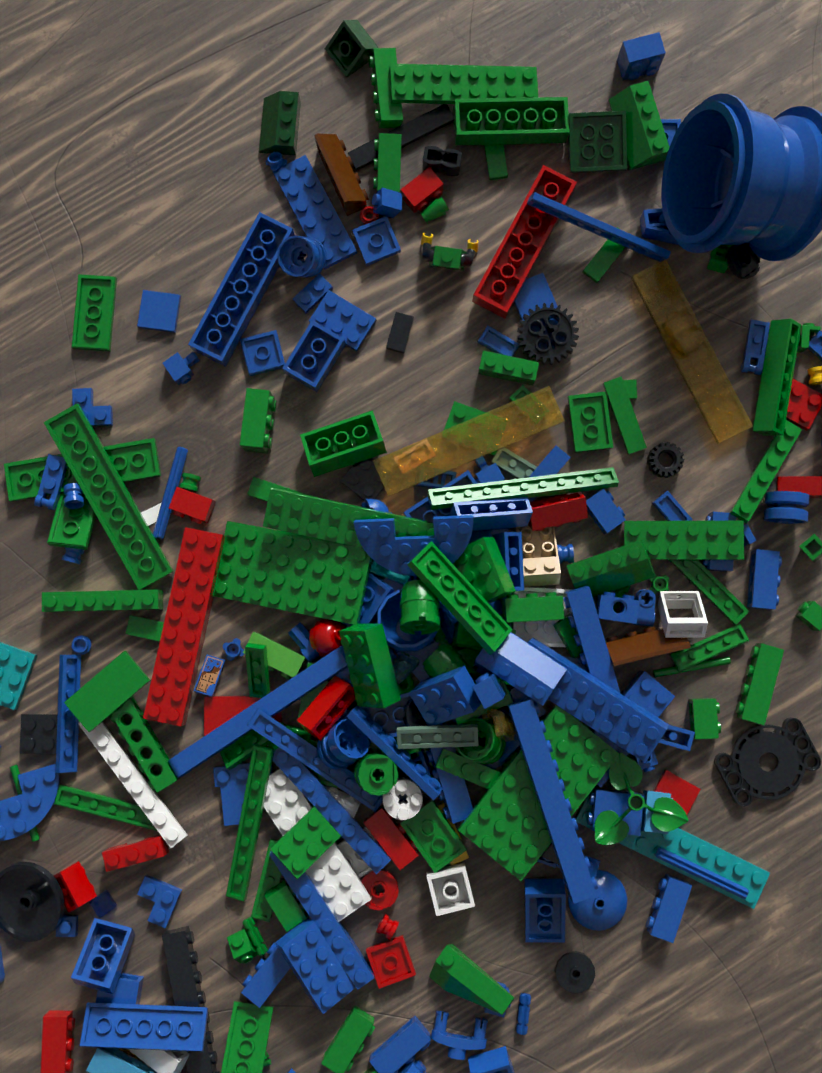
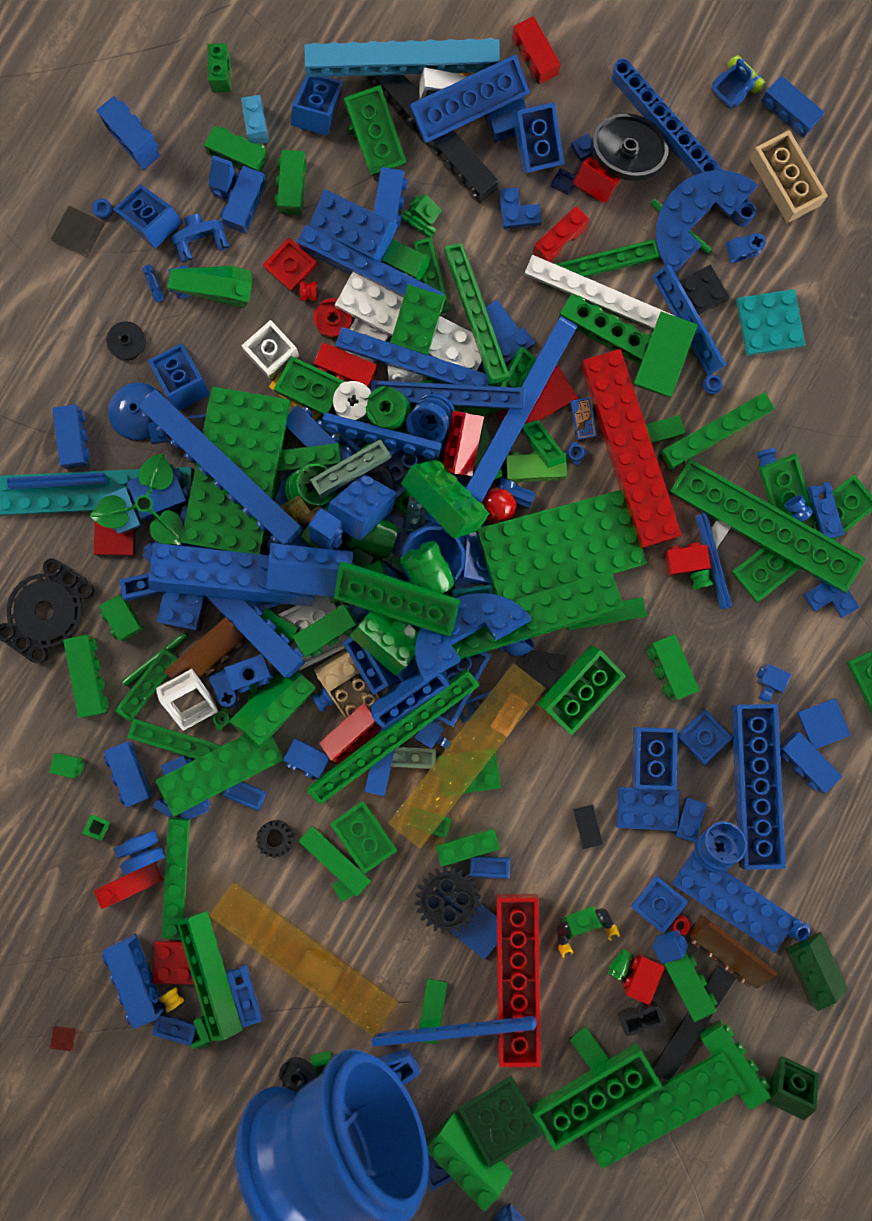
camera: 150 degrees right, 0 degrees up
(190, 285) = (809, 763): none -> blue brick

